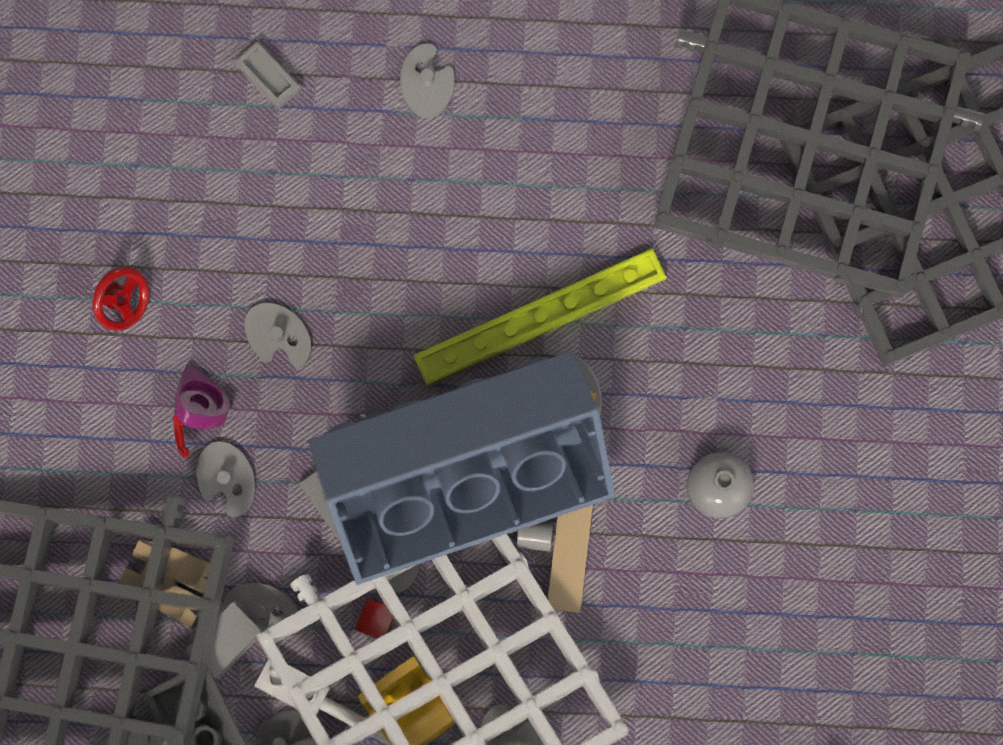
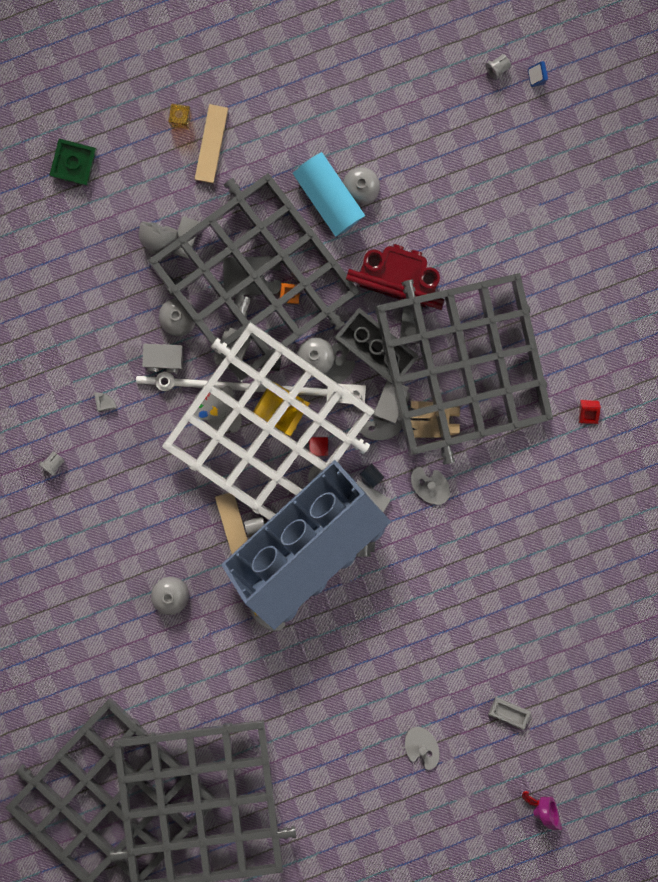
camera: 155 degrees right, 10 degrees up
(118, 297) = (531, 556): red piece -> none
(197, 405) = (462, 517): magenta piece -> none
(270, 327) = (444, 574): light grey piece -> none
(311, 534) = (371, 475): none -> black beam
(539, 317) = (303, 644): neon yellow tile -> none

